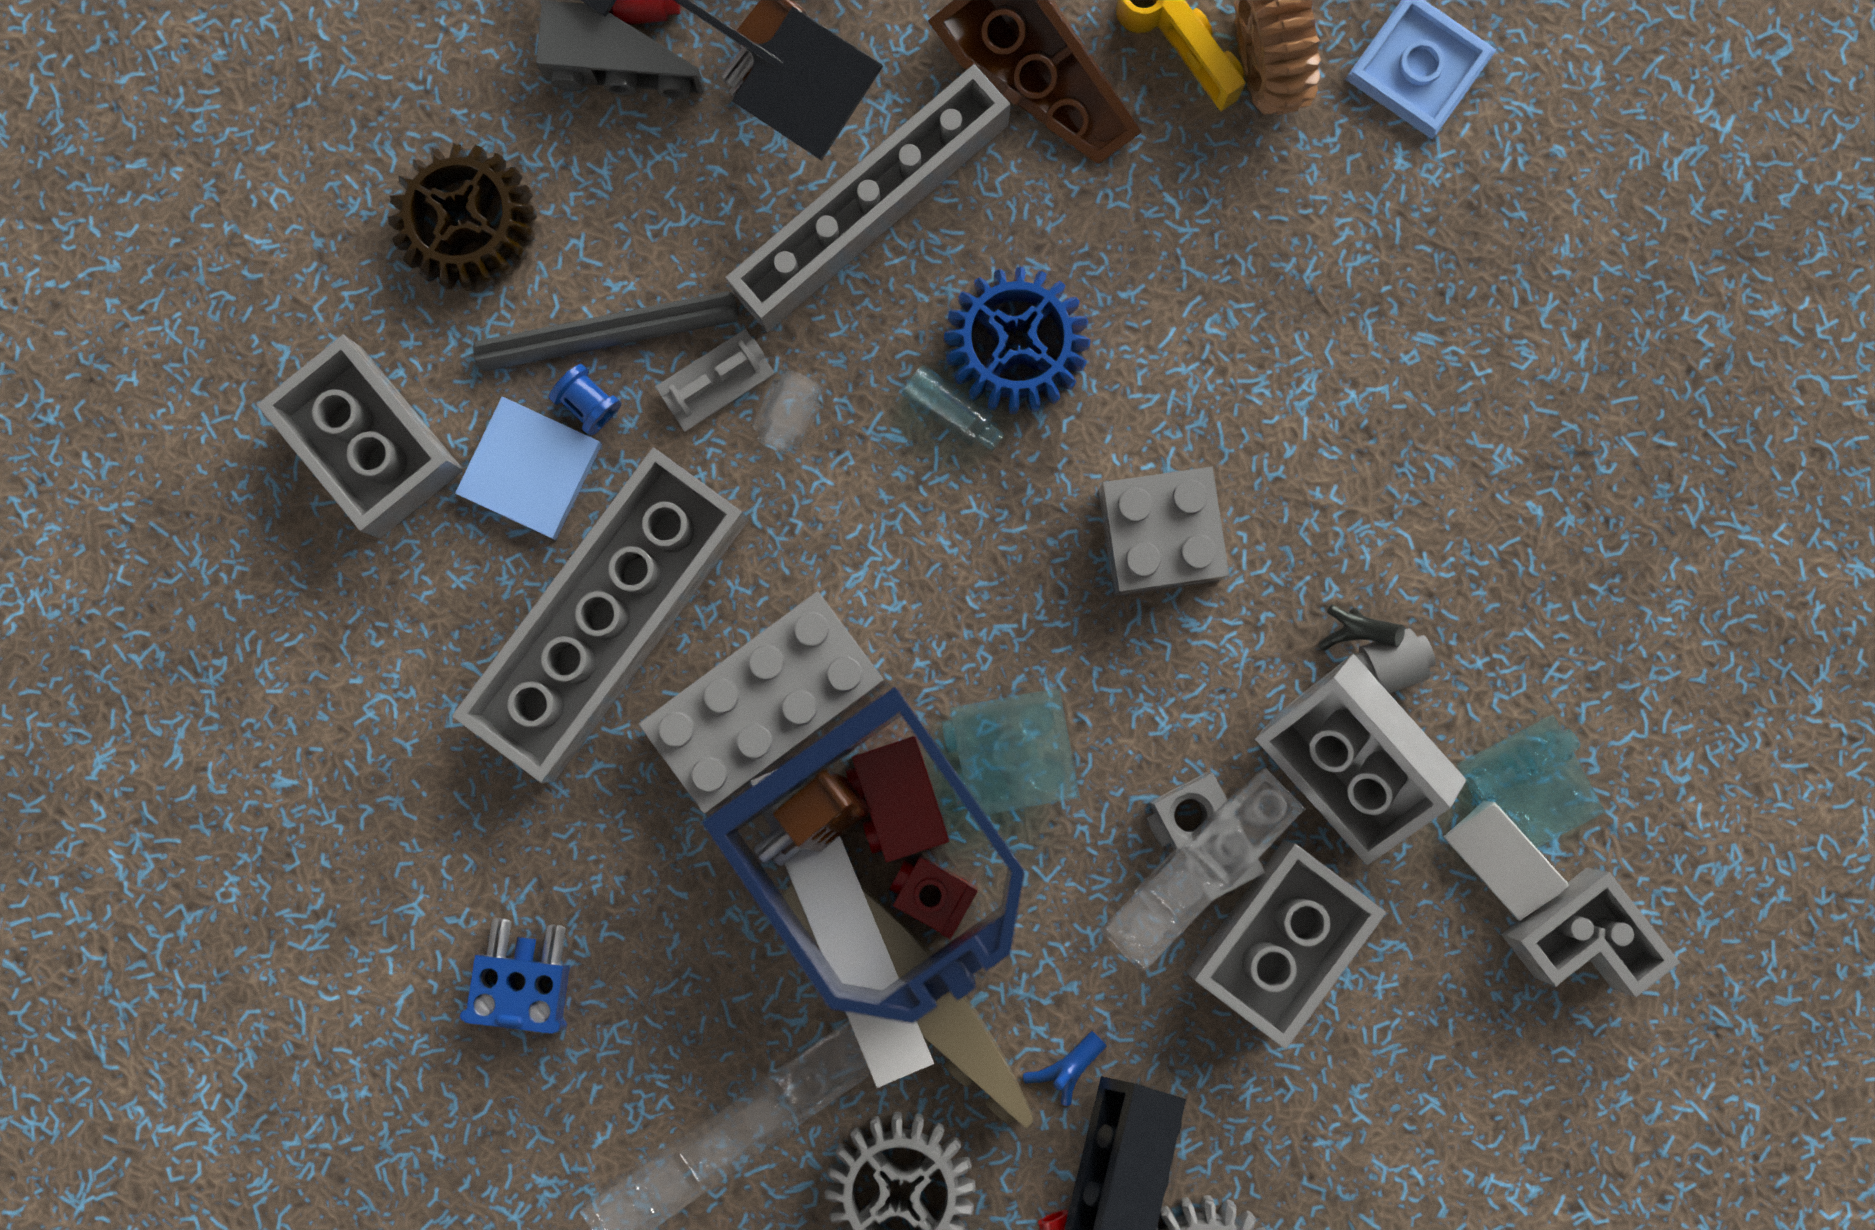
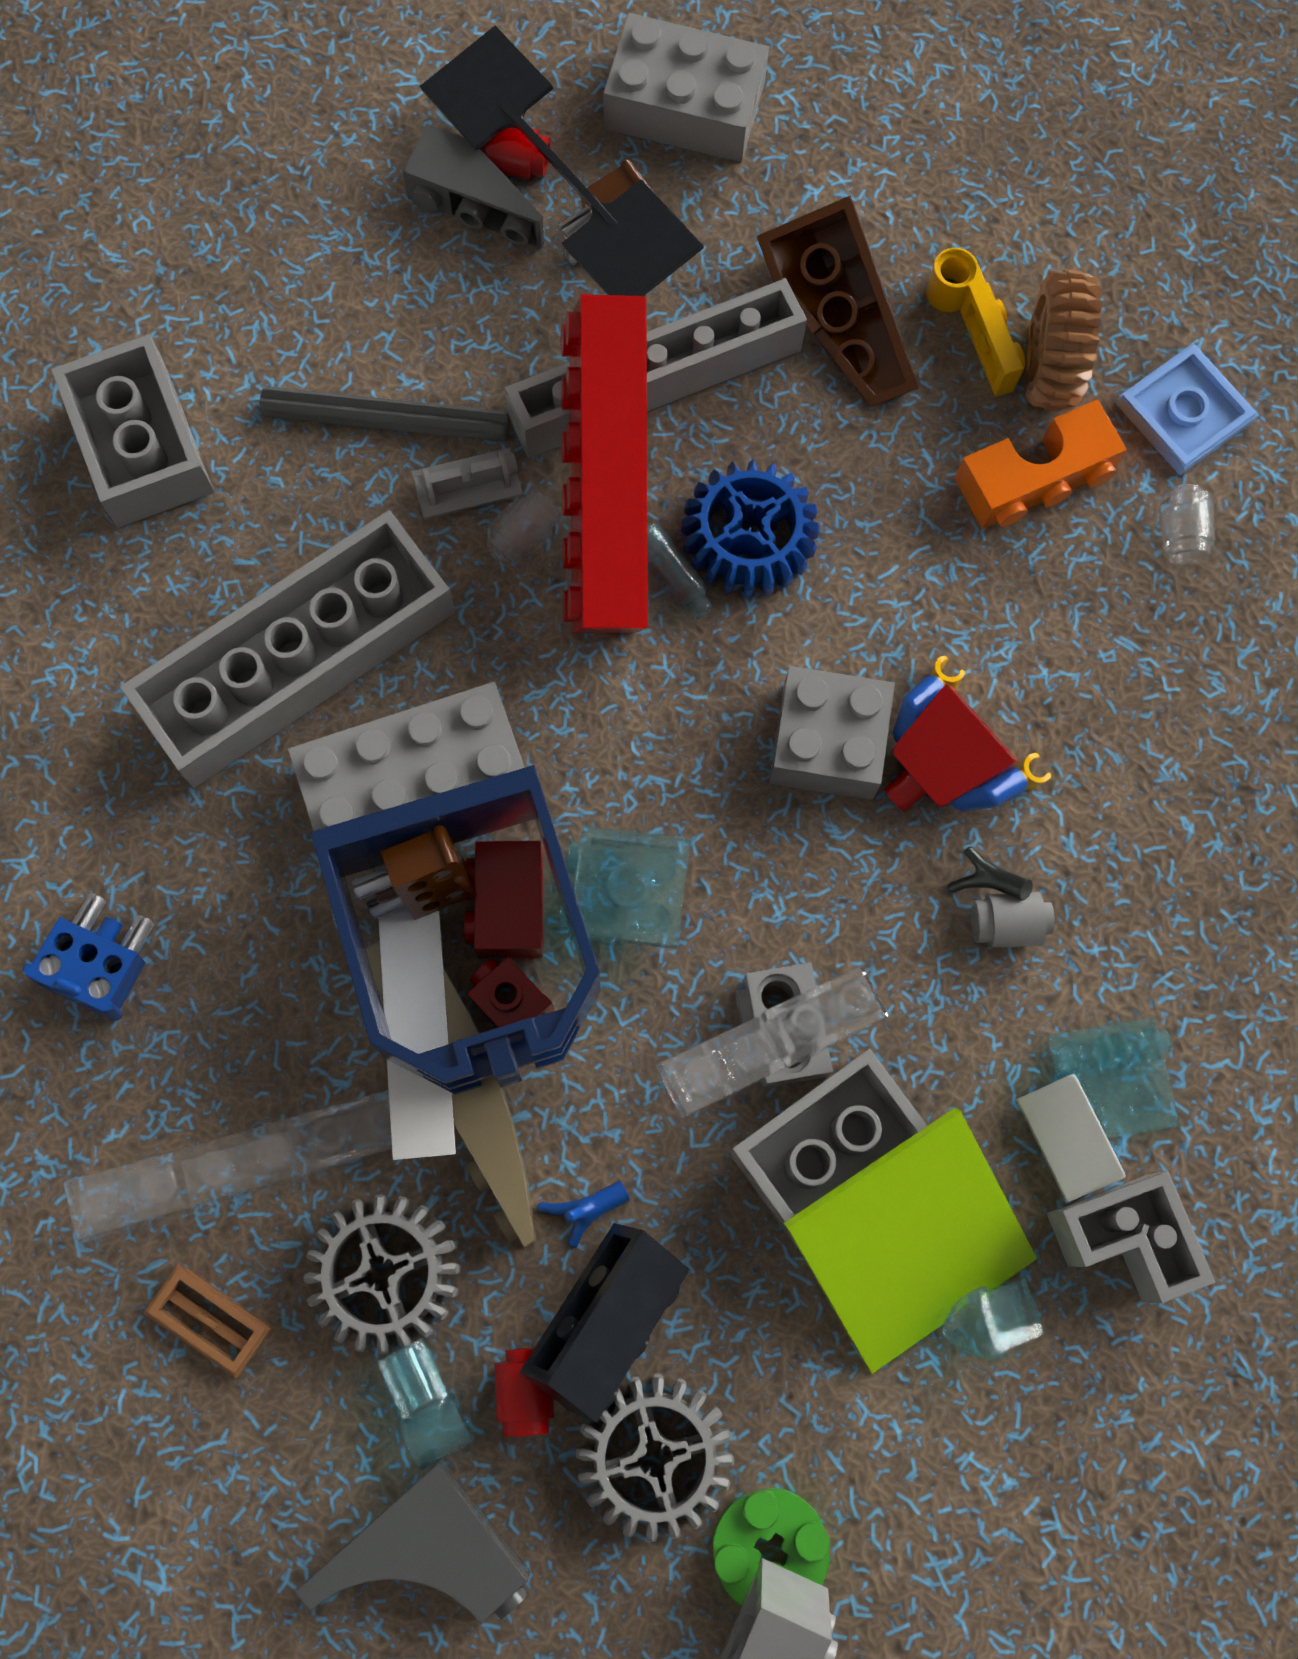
camera: 10 degrees right, 10 degrees down
(453, 237) = (286, 306): dark brown gear -> none
(528, 468) = (273, 508): light blue tile -> none
(584, 399) = (344, 463): blue bush -> none
(861, 341) = (608, 464): none -> red brick
(1287, 513) = (952, 751): none -> red torso
(1326, 147) = (1004, 485): none -> orange arch
(1361, 760) = (955, 991): light grey brick -> none
(1385, 1006) = (911, 1239): none -> lime piece
(1455, 195) = (1187, 524): none -> clear brick
(1481, 1052) = (993, 1320): none -> clear light blue tile

